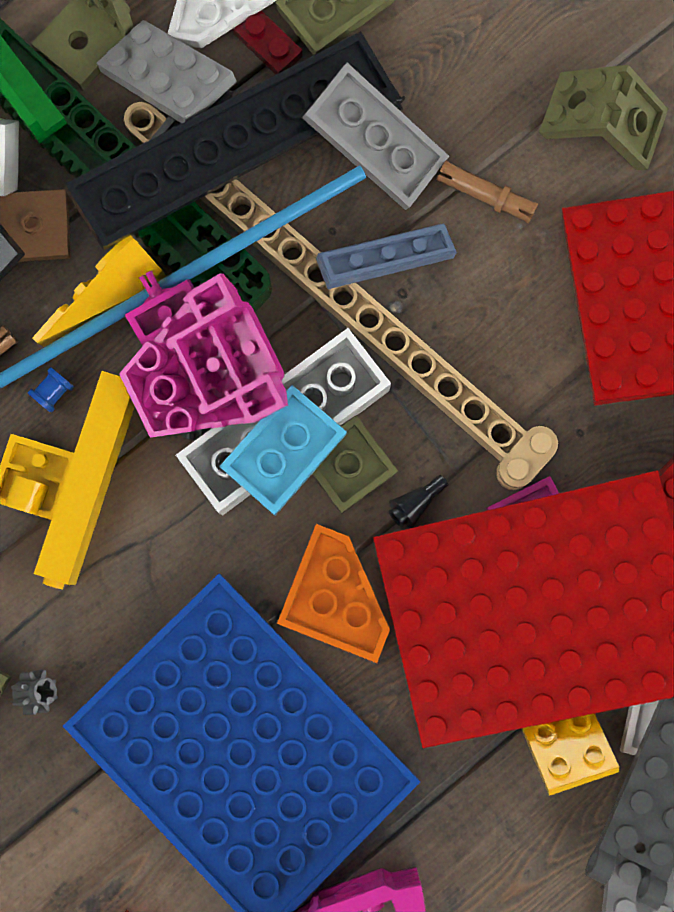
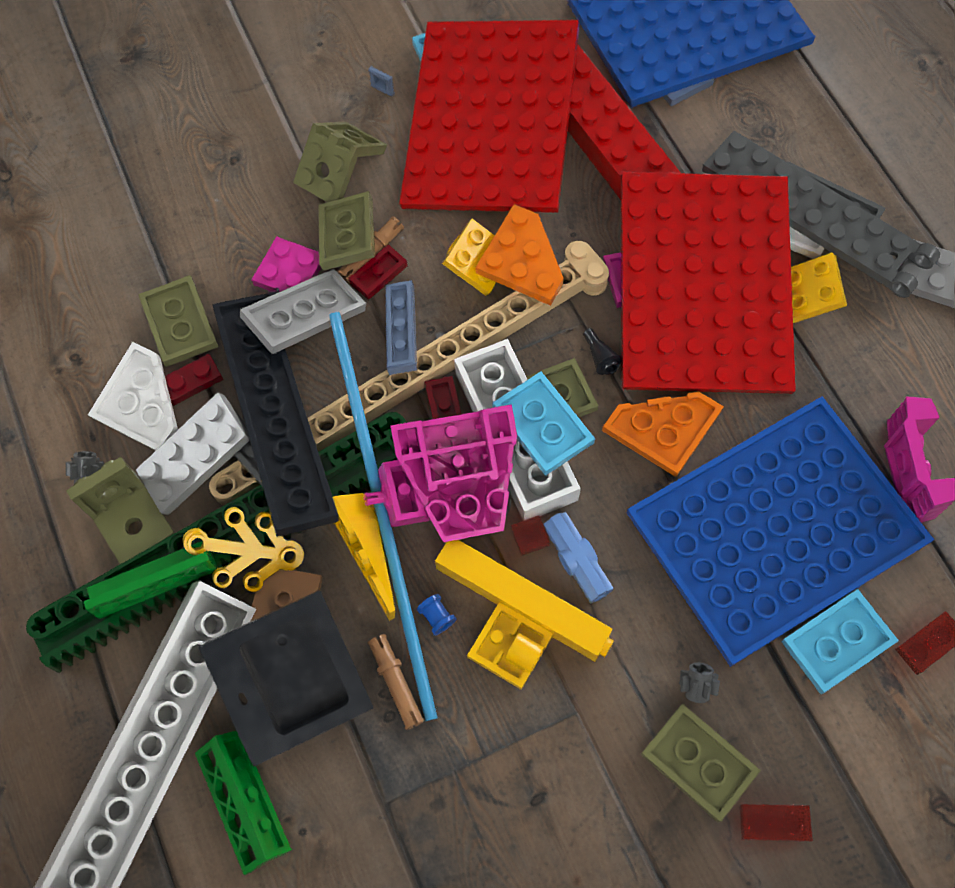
camera: 75 degrees left, 15 degrees down
(65, 166) = (249, 551): none -> yellow plant
(118, 844) = (839, 641): none -> medium azure plate
(150, 529) = (578, 557): none -> medium blue piece
(164, 470) = (530, 535): none -> clear red plate
(302, 333) = (442, 397): none -> dark red plate
(440, 103) = (286, 266): none -> dark pink plate
(458, 209) = (378, 272): none -> dark red plate
(500, 154) = (346, 231): none -> olive plate
(507, 322) = (466, 253): none -> yellow plate
(513, 375) = (522, 257): none -> orange plate

